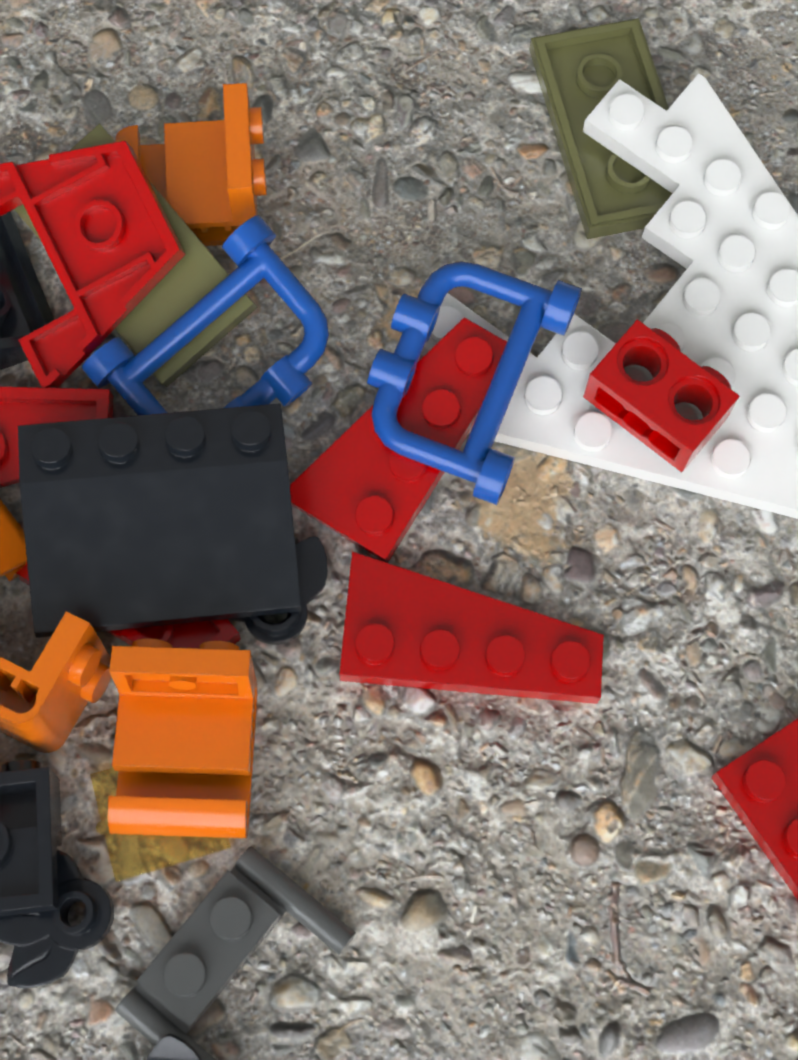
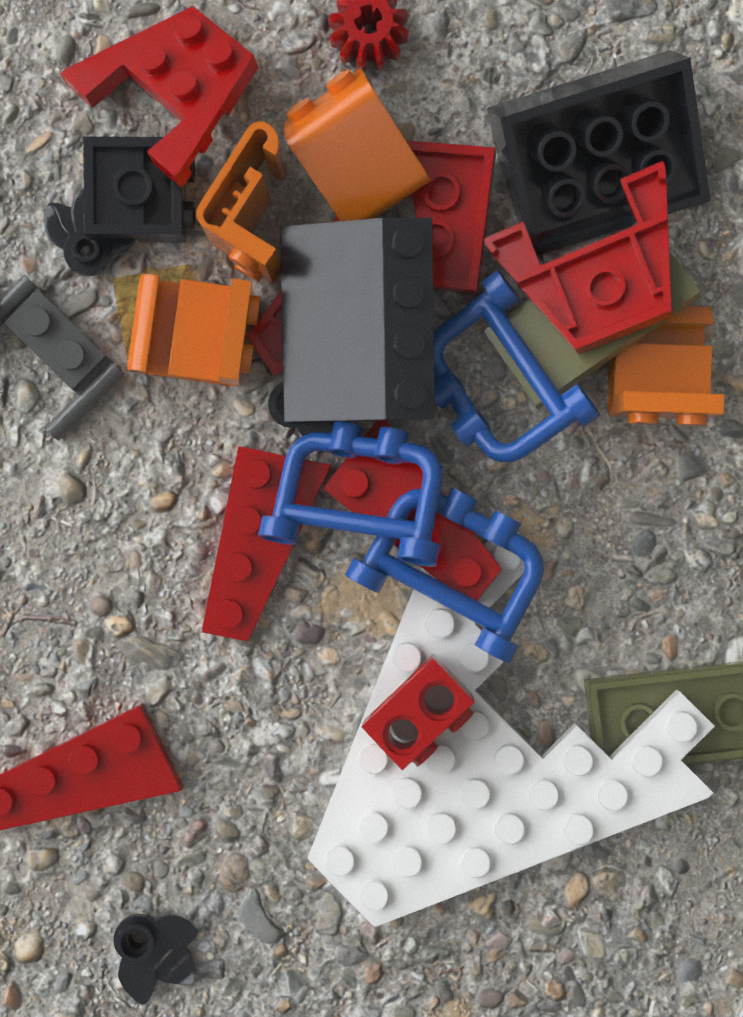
camera: 95 degrees right, 20 degrees up
(323, 465) = (347, 442): none -> blue bar

